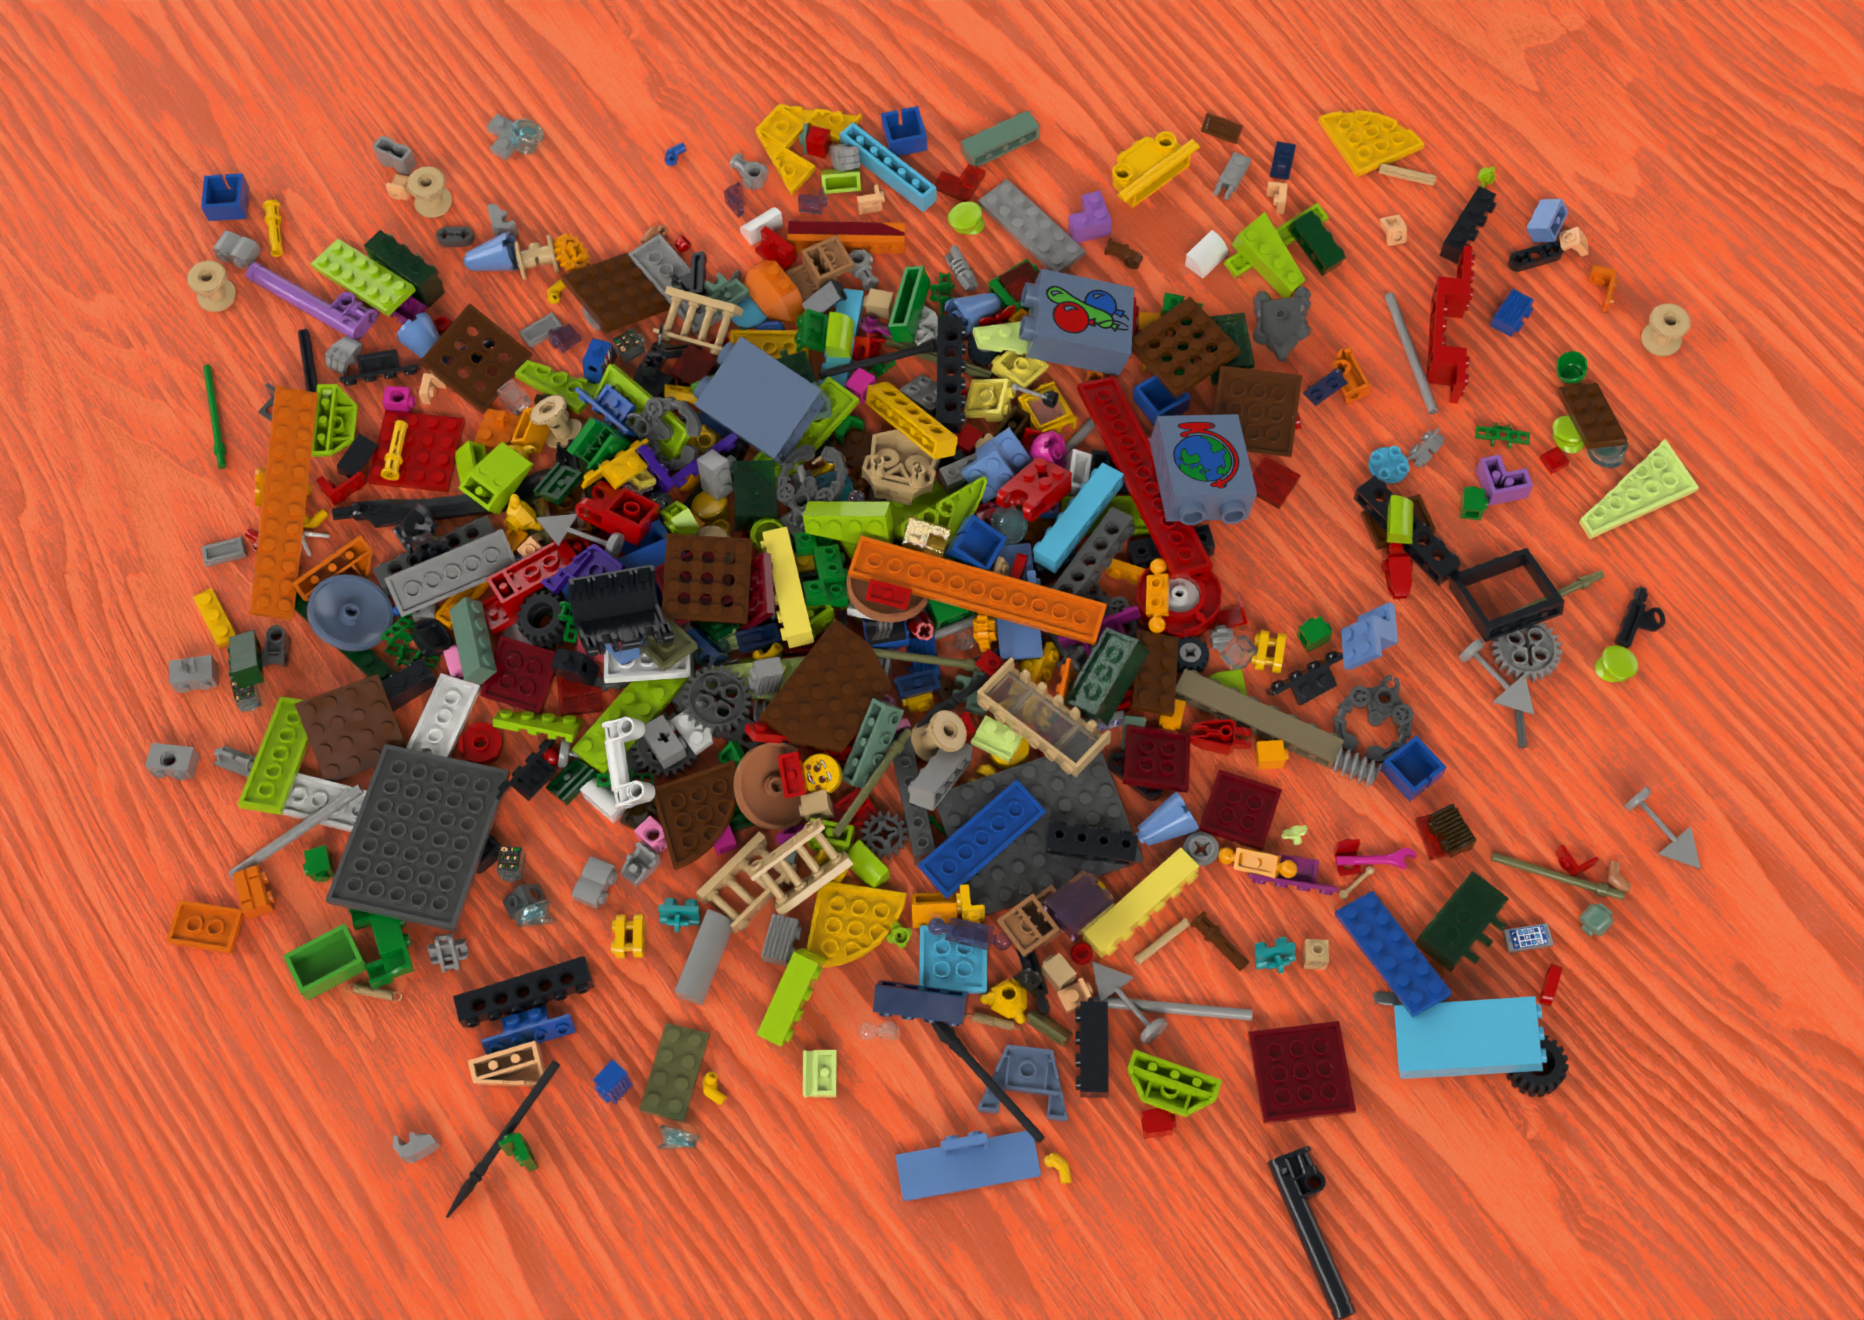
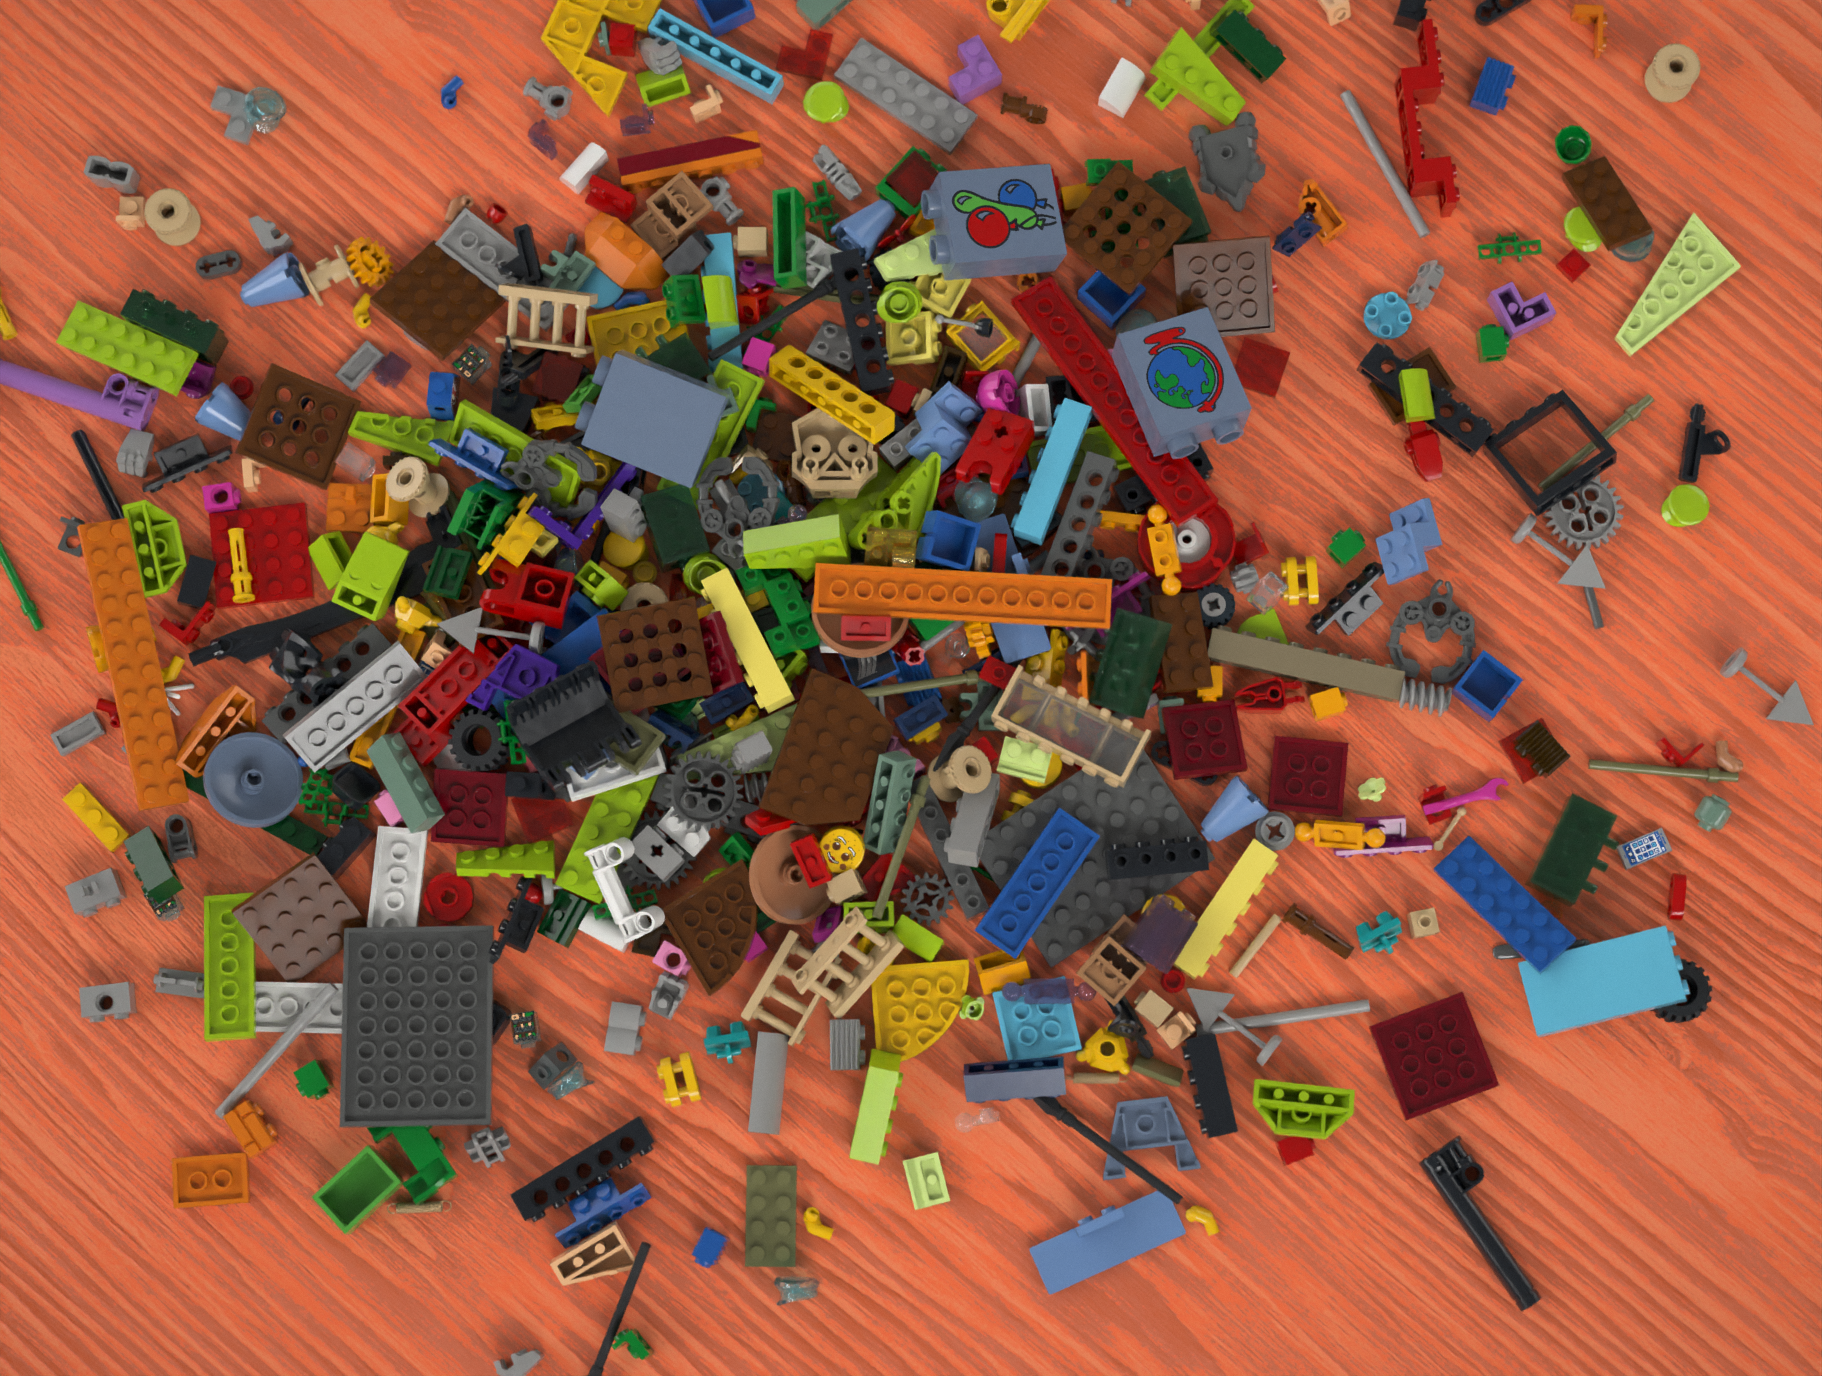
camera: 10 degrees left, 15 degrees up
(969, 913) = (1035, 960): yellow bracket -> none
(985, 366) = (899, 302): none -> lime piece

